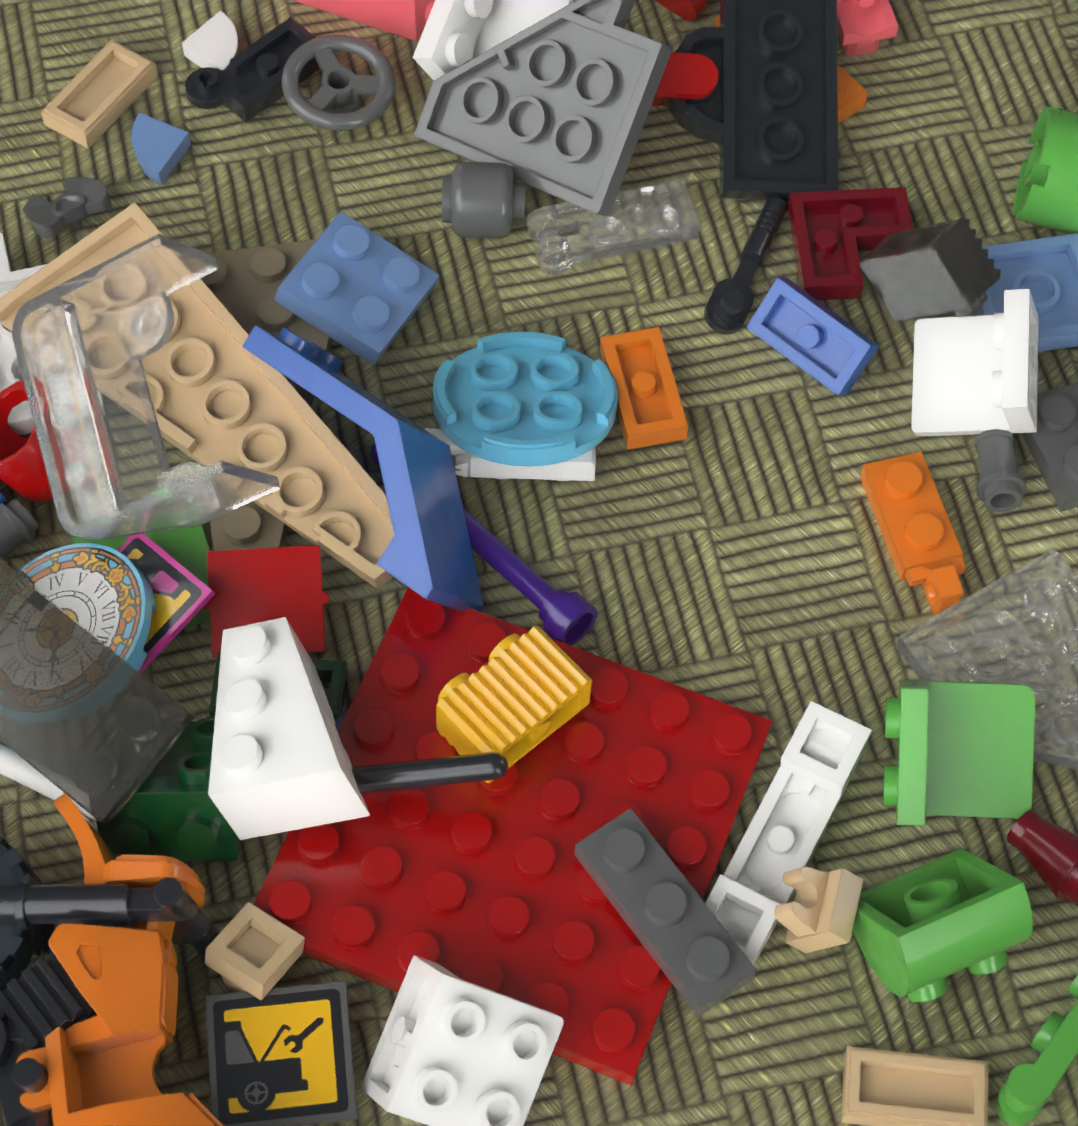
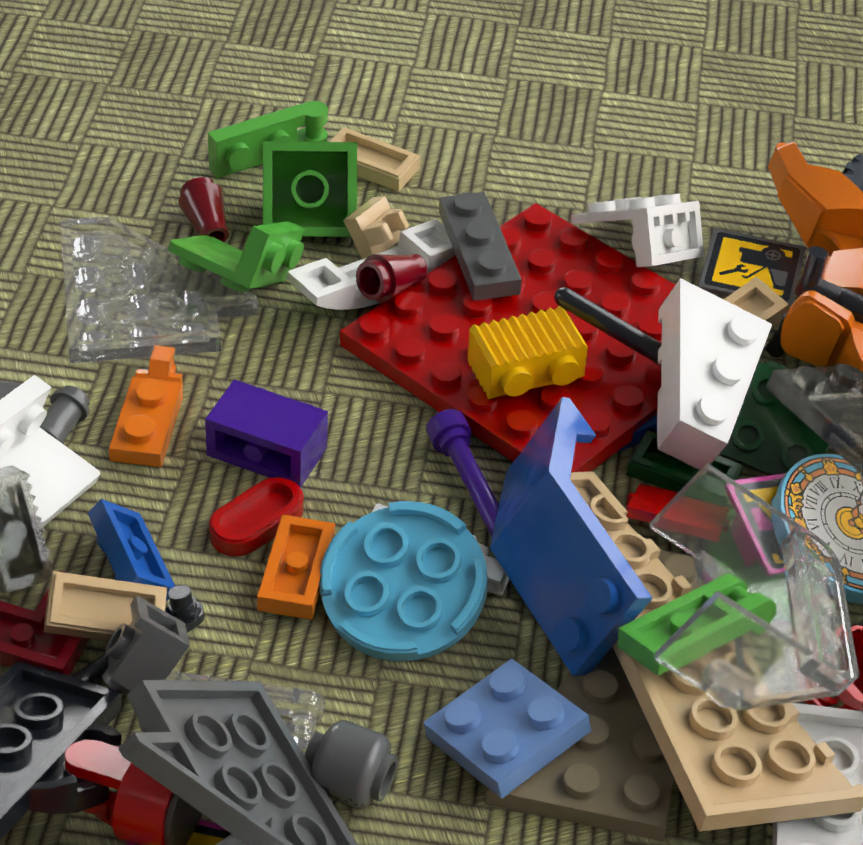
camera: 160 degrees left, 15 degrees down
(192, 380) = (649, 632): none -> bright green plate
(721, 214) = (144, 648): none -> dark grey brick
(721, 446) = (254, 516): none -> red tile
(748, 802) = (387, 275): none -> dark red cone
(766, 528) = (266, 432): none -> dark purple brick
(787, 244) = (94, 605): none -> tan tile

